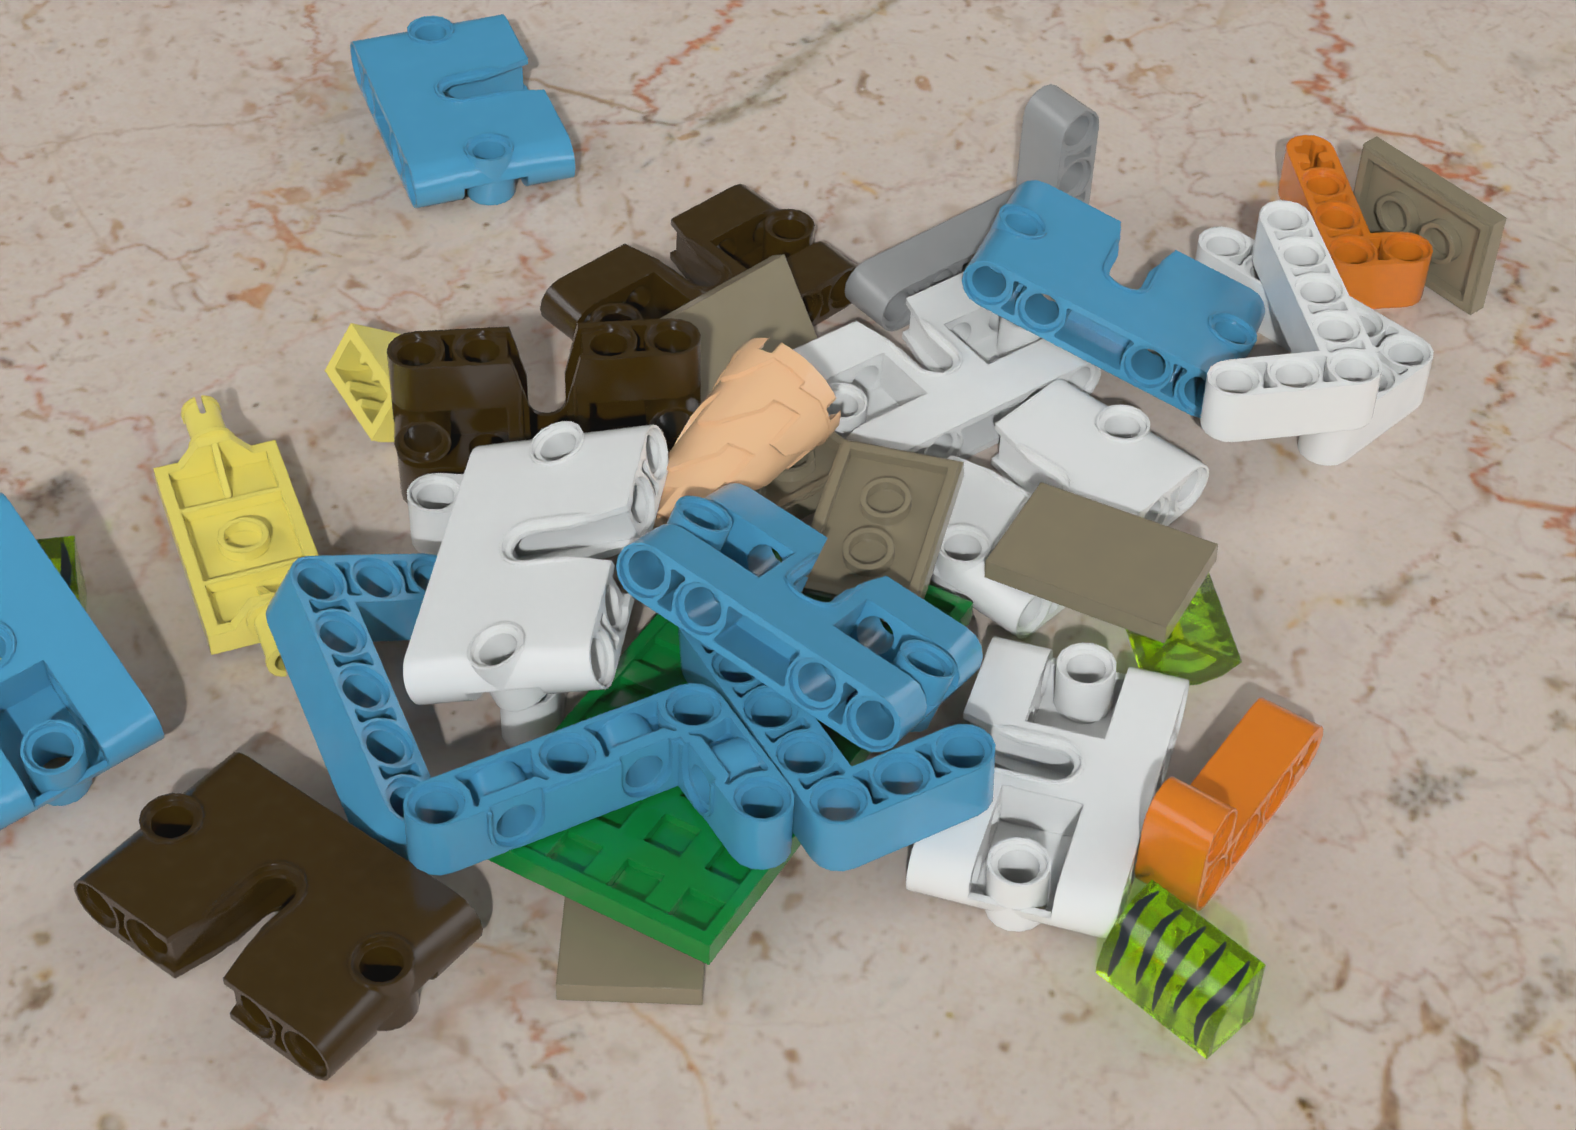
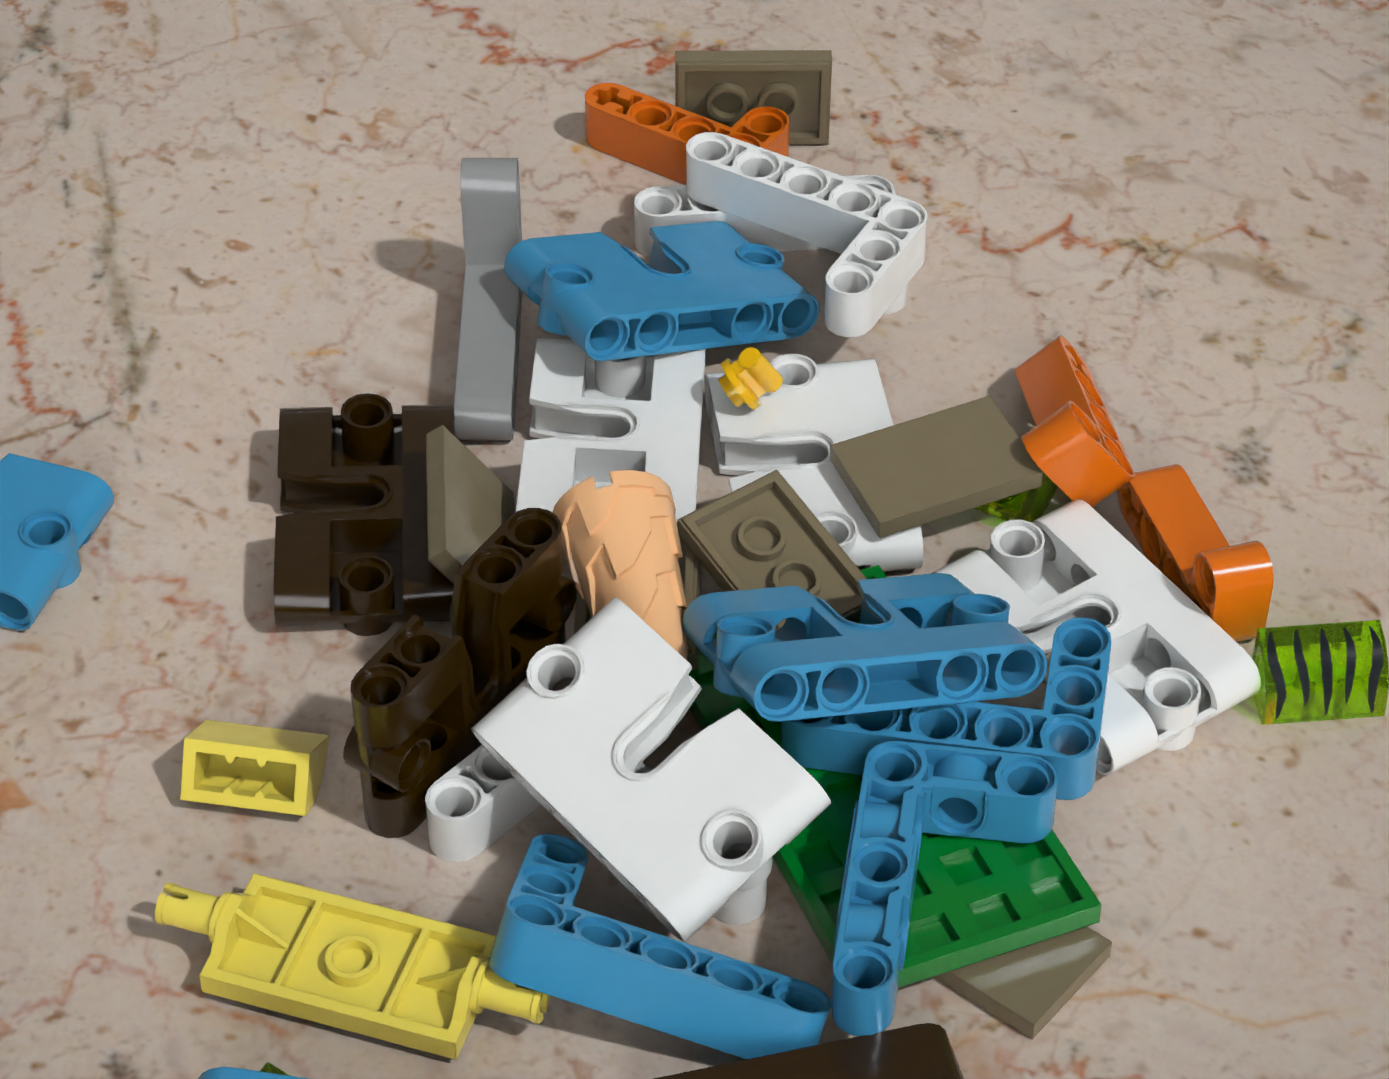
camera: 50 degrees left, 0 degrees up
(1059, 396) = (749, 378): none -> yellow plate
(1251, 650) = (1073, 430): none -> orange beam

